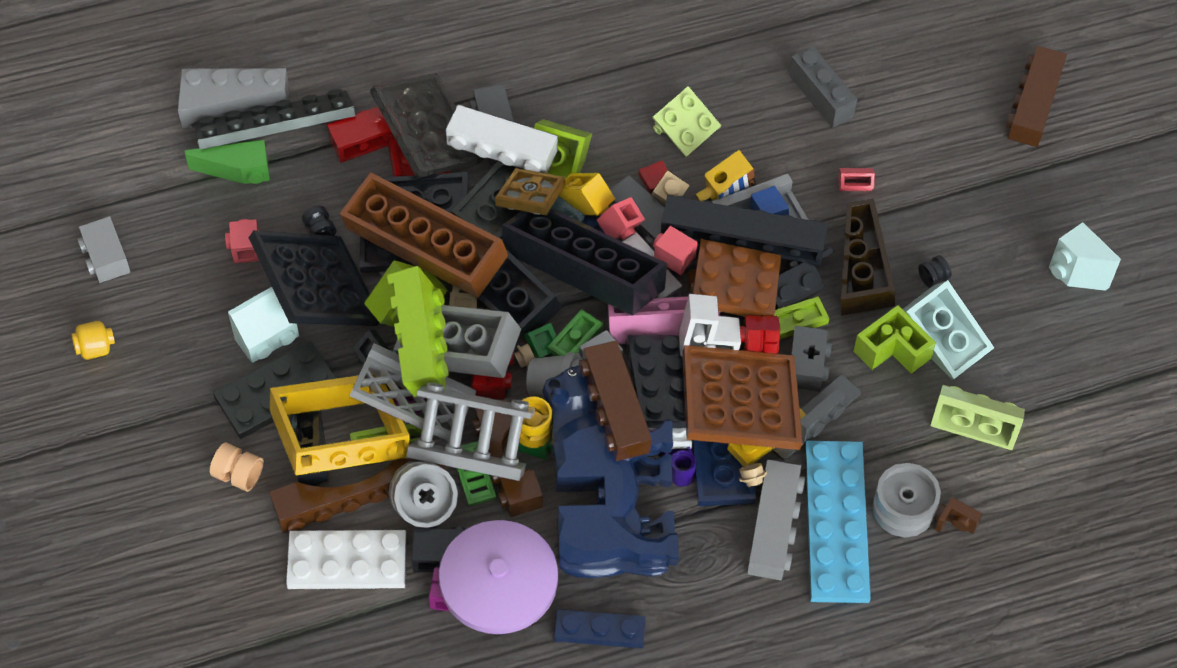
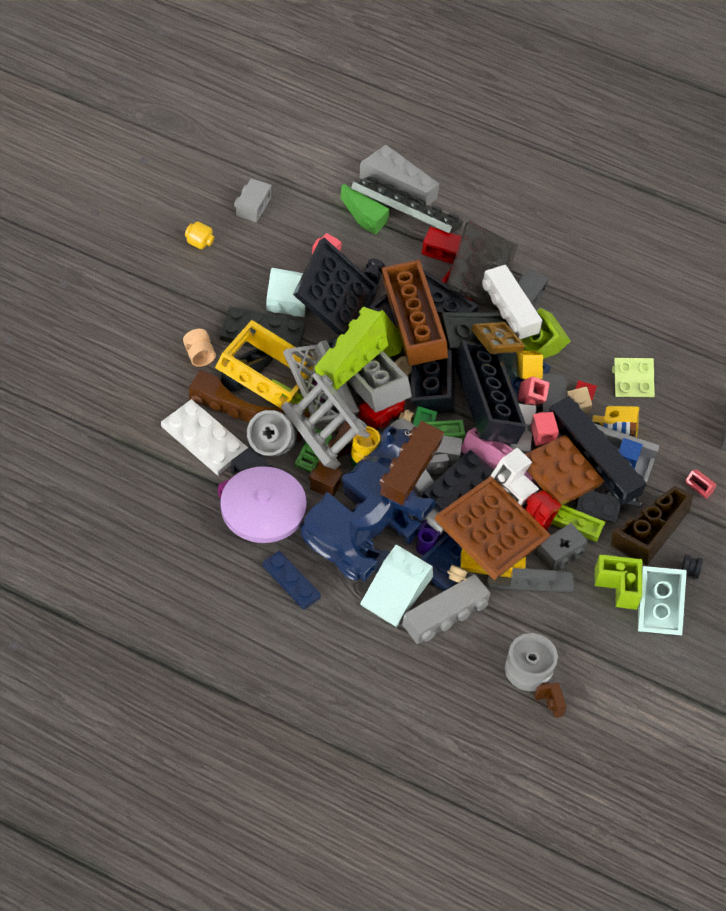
camera: 40 degrees right, 5 degrees down
(709, 540) = (397, 585): none -> light aqua slope
(837, 522) = (481, 642): medium azure plate -> none
(978, 417) = (626, 658): yellowish green slope -> none

